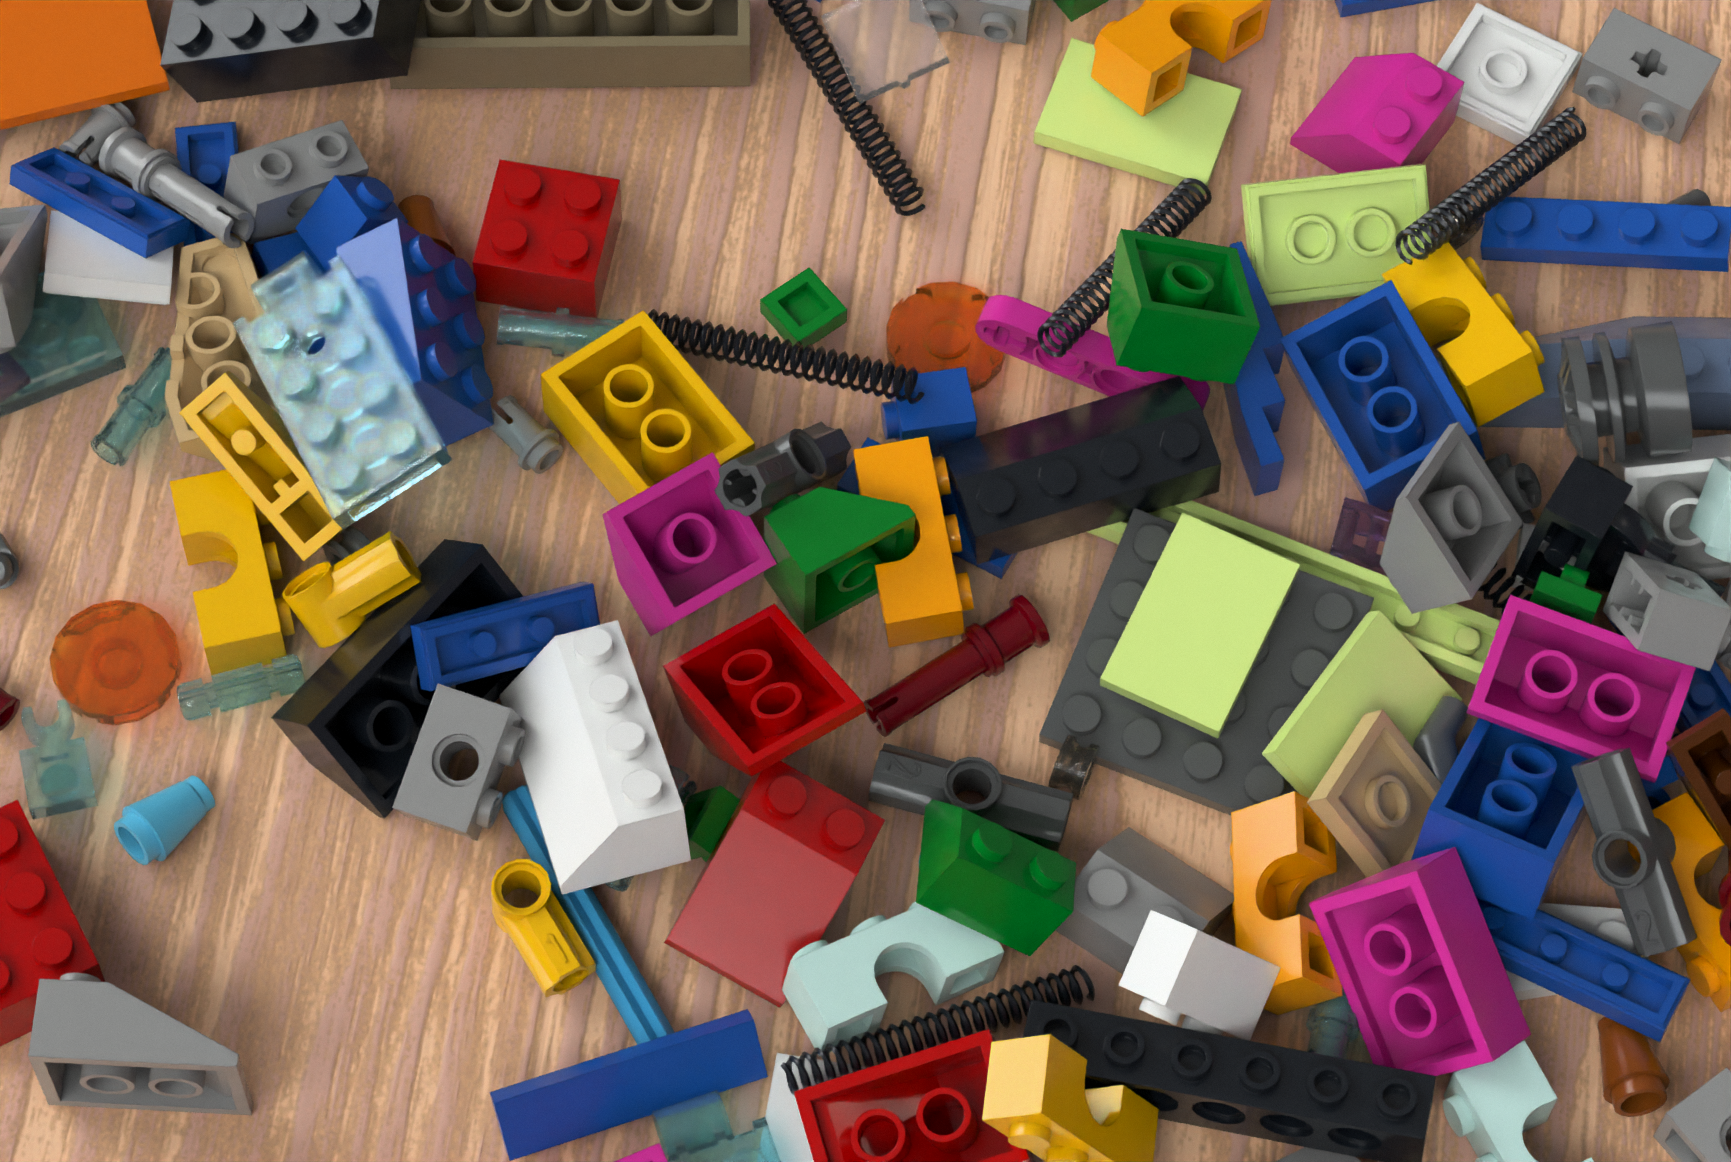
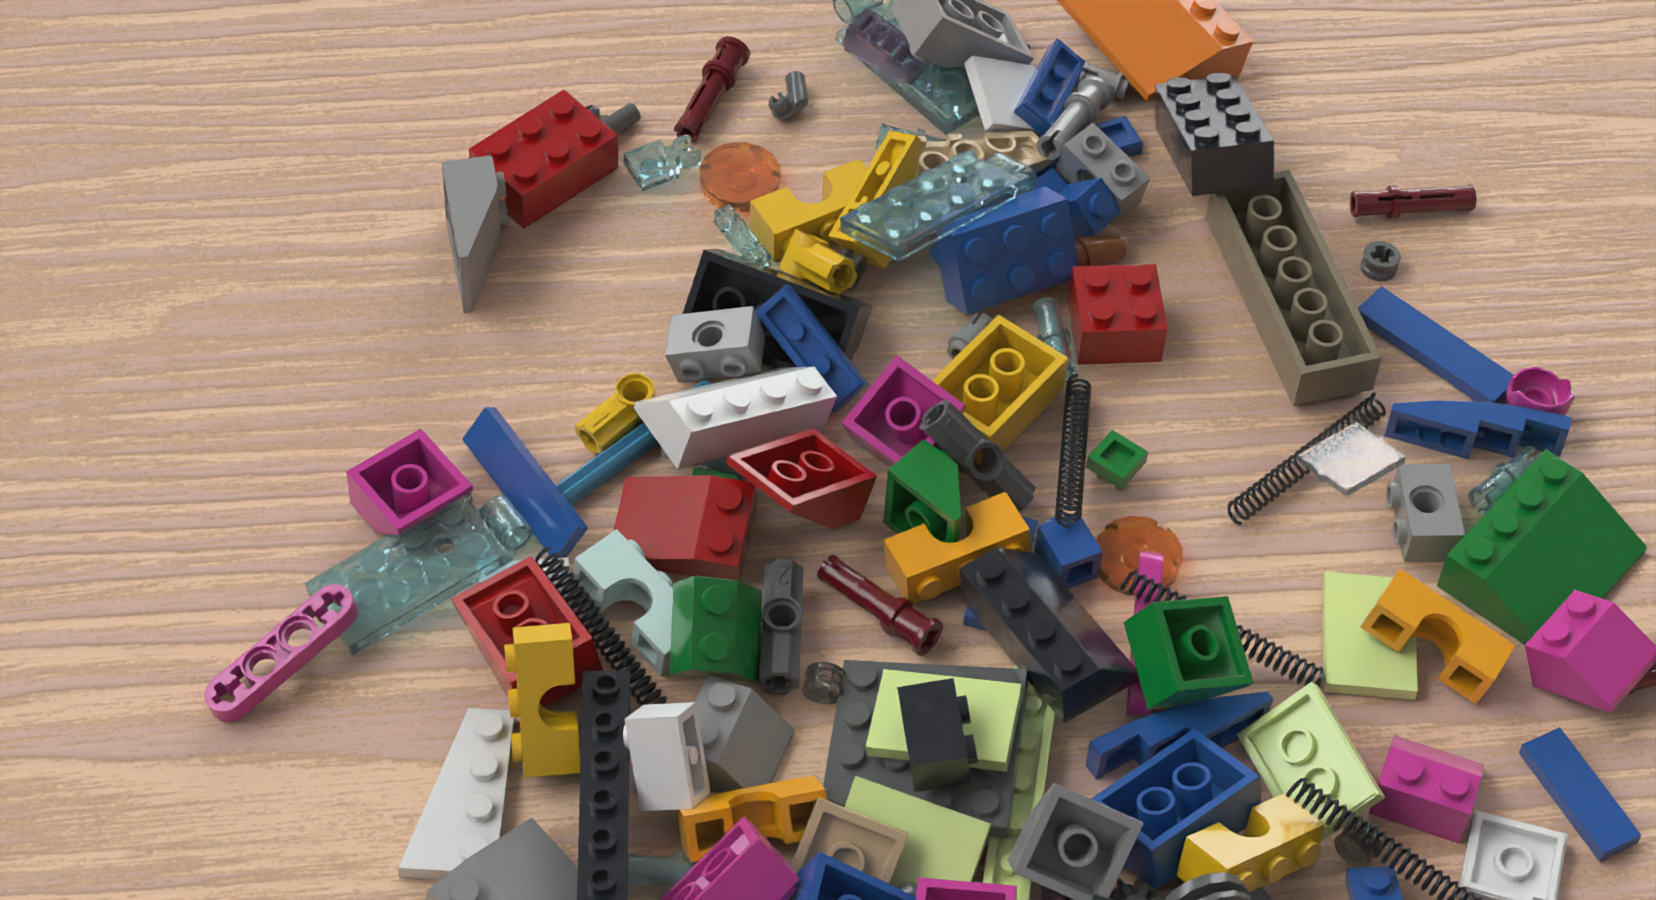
camera: 75 degrees right, 10 degrees down
(162, 820) = (638, 219): medium azure cone -> none
(1252, 631) = (935, 734): none -> black brick

